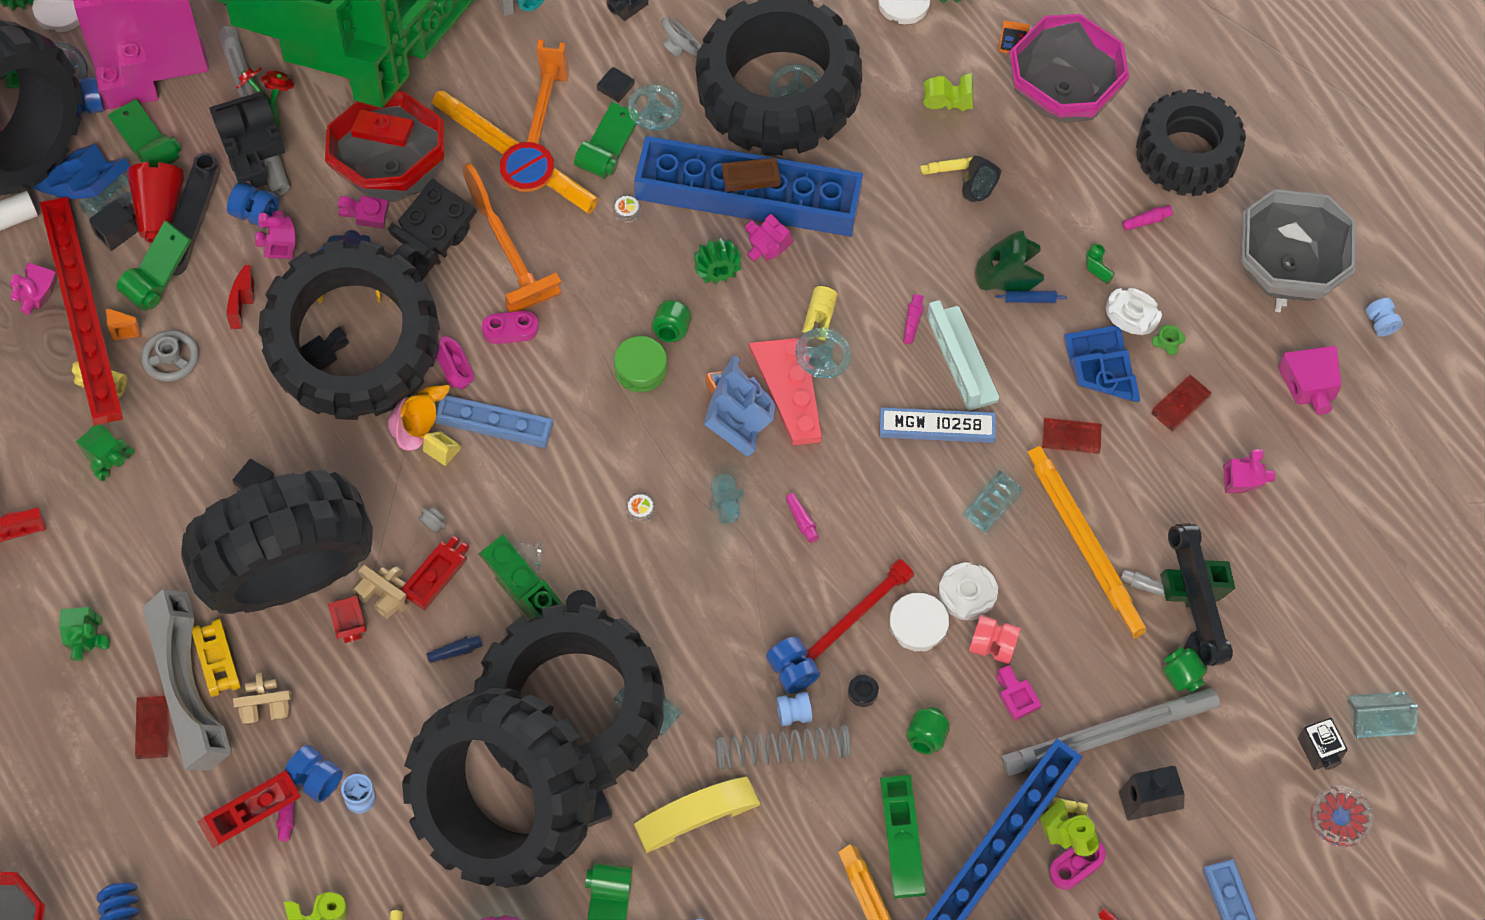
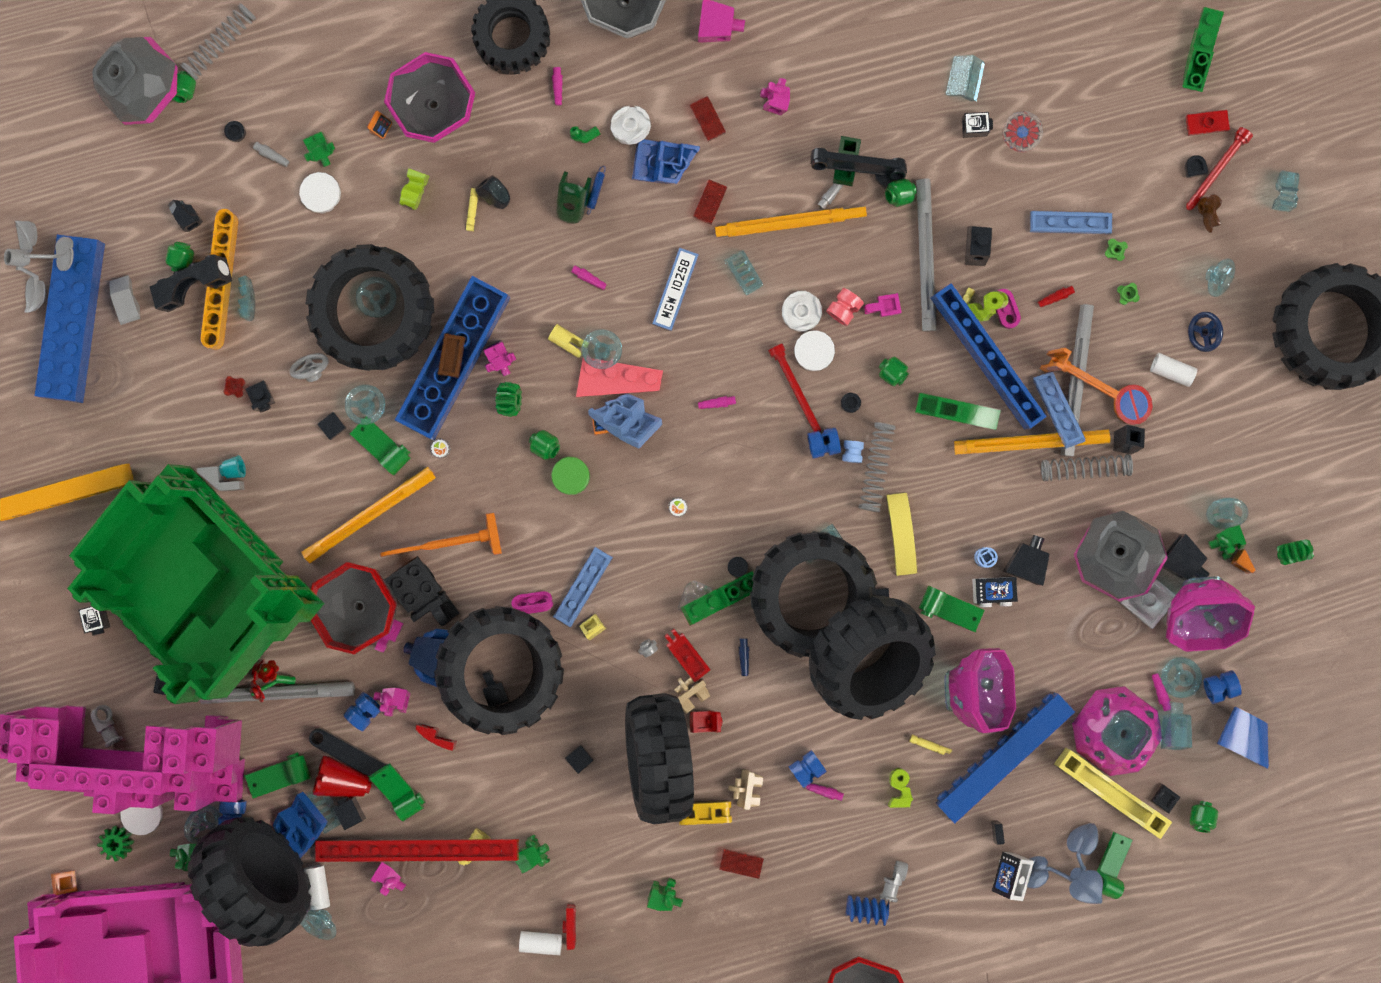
camera: 70 degrees left, 25 degrees up
(122, 325) = (435, 824): orange slope -> none
(164, 343) = (467, 811): light grey piece -> none
(170, 628) = (756, 836): light grey arch -> none
(248, 135) = (306, 703): black plate -> none
(249, 809) = (821, 816): red slope -> none
(356, 787) = (828, 743): light blue wheel -> none
(382, 128) = (344, 608): red plate -> none
(415, 417) = (570, 640): light orange hair -> none
(510, 327) = (512, 556): dark pink plate -> none
(528, 163) = (387, 509): piece -> none
(726, 498) = (695, 450): clear light blue hips -> none
(962, 356) = (628, 253): light aqua panel -> none
(1169, 332) = (658, 102): bright green plate -> none

